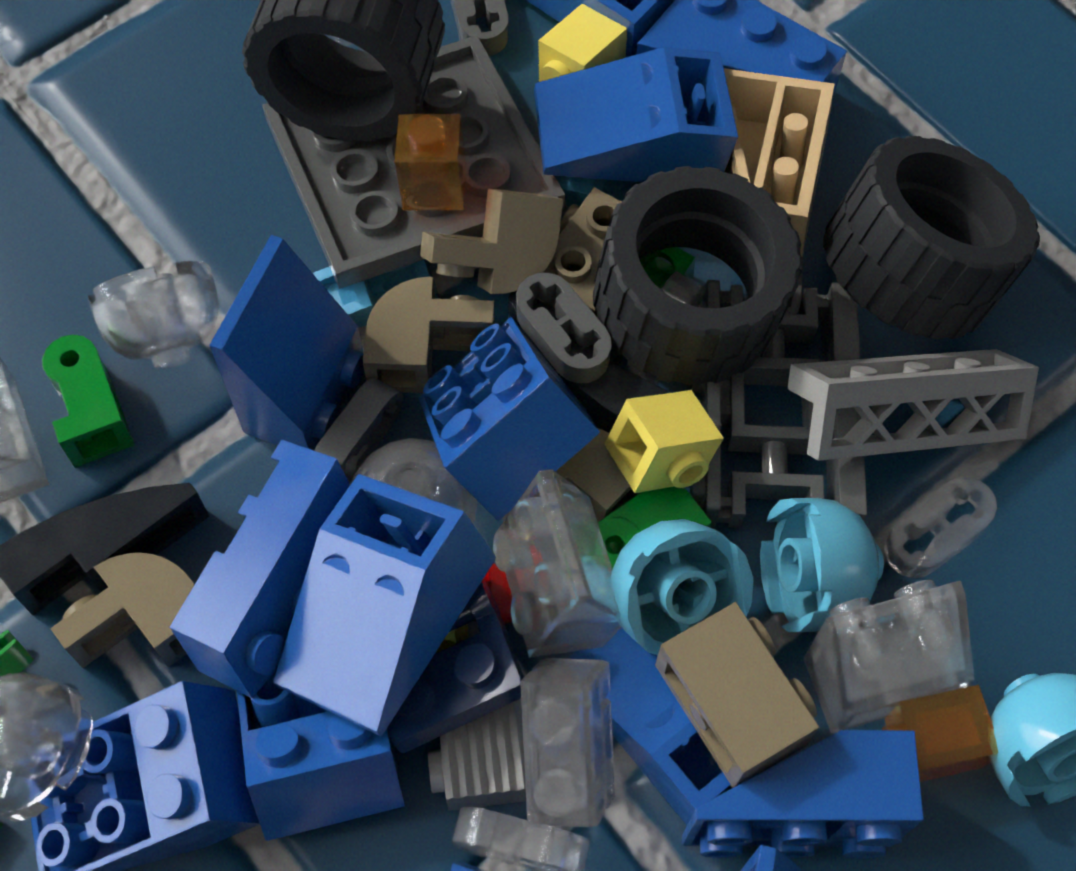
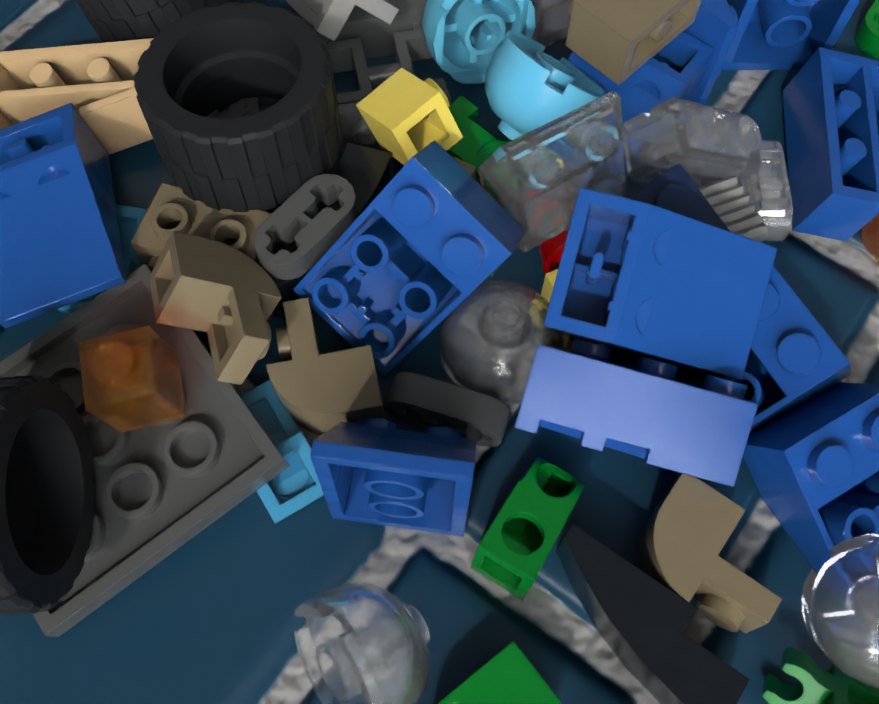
camera: 105 degrees left, 0 degrees up
(215, 466) = (527, 527): none -> green leg

